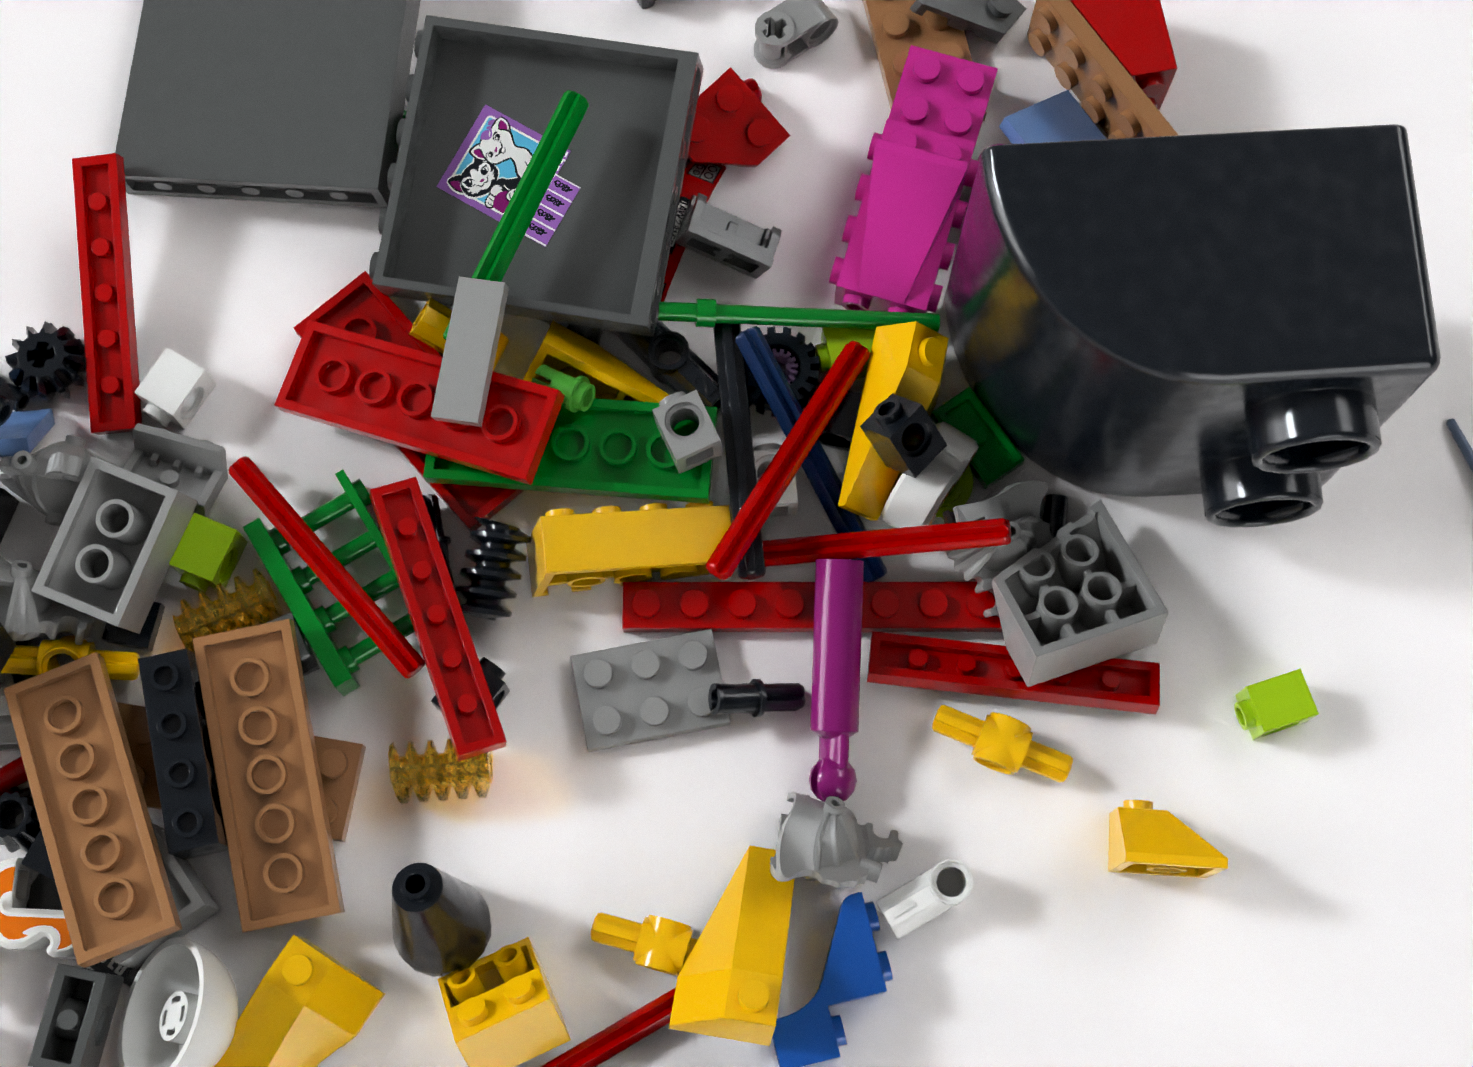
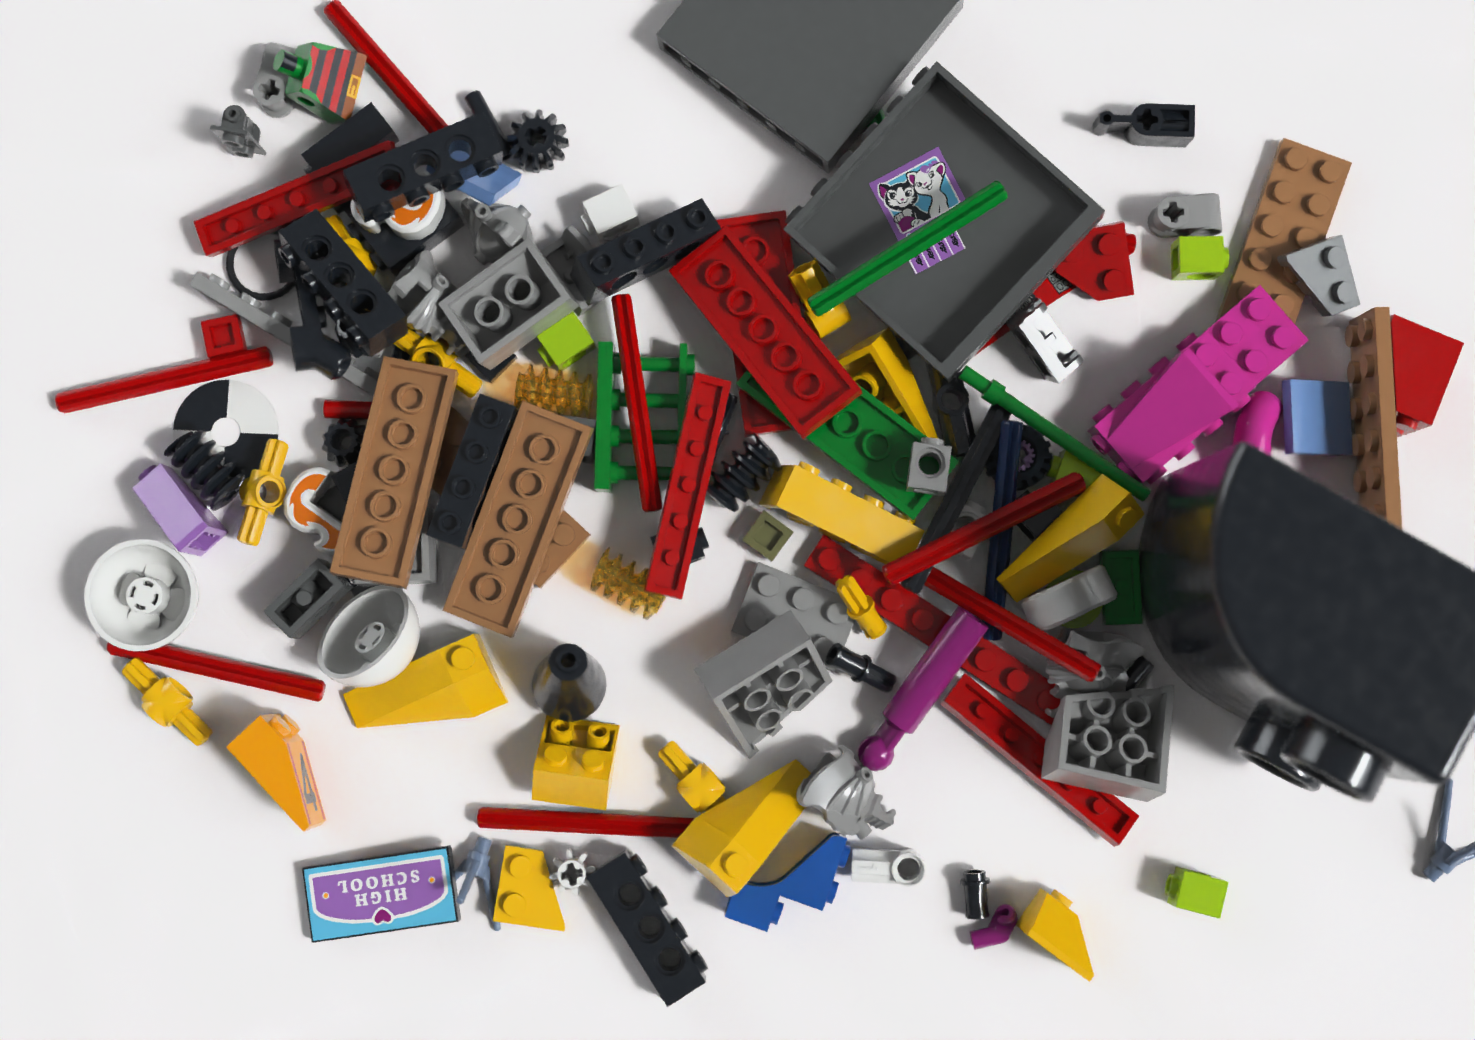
camera: 30 degrees right, 10 degrees up
(106, 293) = (604, 118): red plate -> none
(230, 403) = (642, 251): none -> black brick
(470, 351) = (818, 324): light grey tile -> none
(563, 622) = (767, 536): none -> olive plate
(577, 391) = (872, 392): bright green pin -> none
(657, 776) = (764, 679): none -> light grey wedge
(712, 631) = (860, 607): none -> yellow axle
(831, 61) = (1198, 258): none -> lime brick
(903, 435) = (1070, 564): black brick -> none
(1002, 743) = (1001, 800): yellow axle -> none
(1043, 864) = (975, 891): none -> black pin
(1094, 888) = (998, 930): none -> magenta arm

